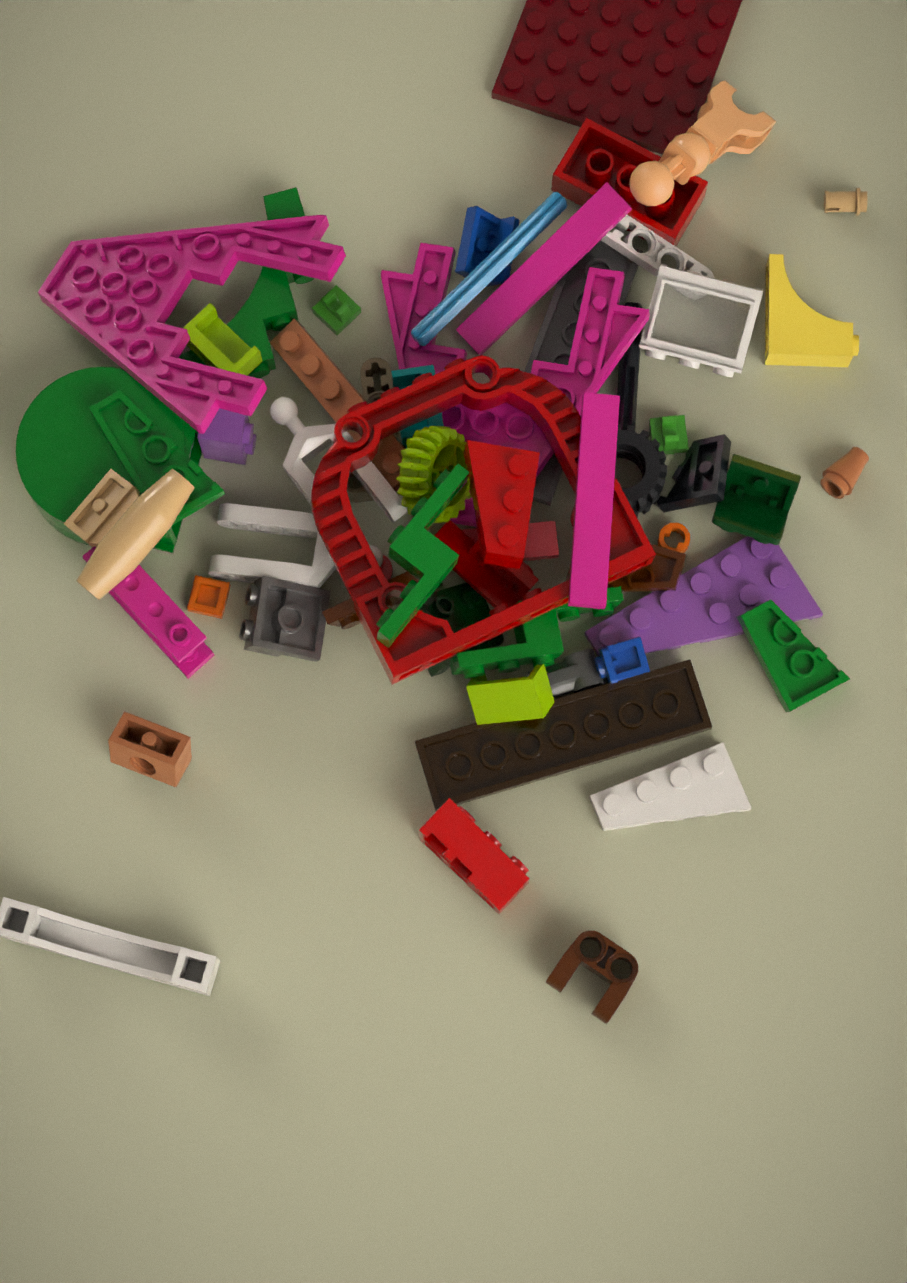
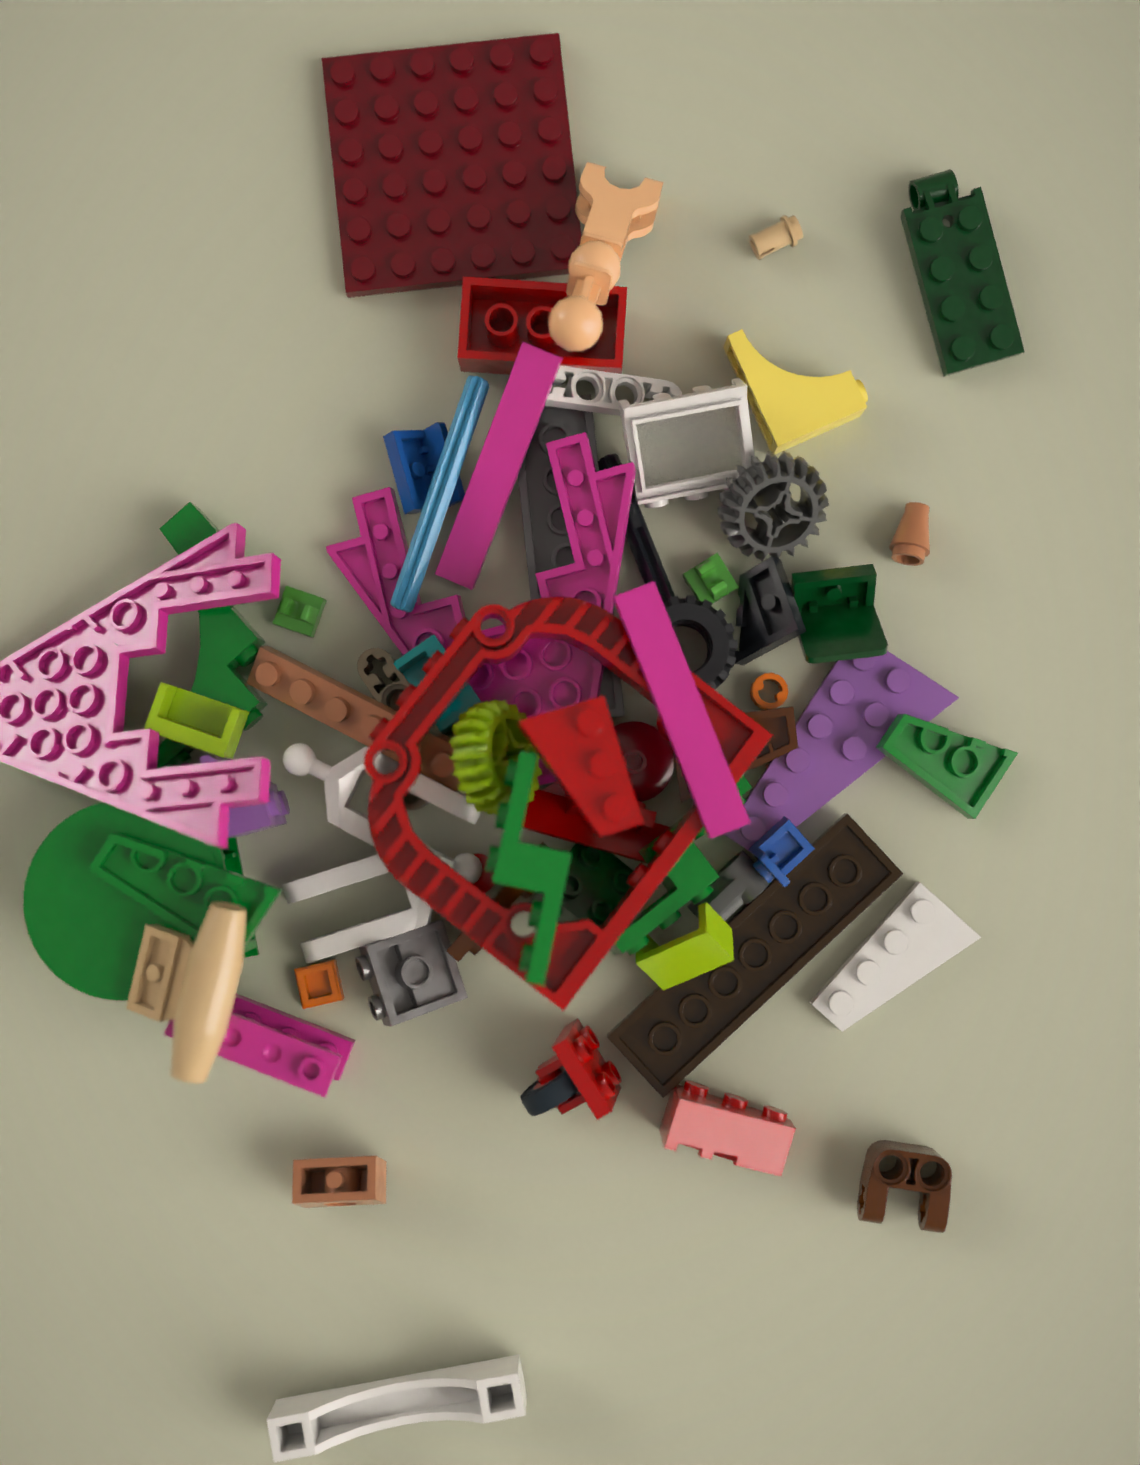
camera: 25 degrees left, 10 degrees up
(373, 754) = (574, 1076): none -> red plate
(556, 552) = (656, 758): none -> dark red dish
(754, 405) = (766, 494): none -> dark grey gear

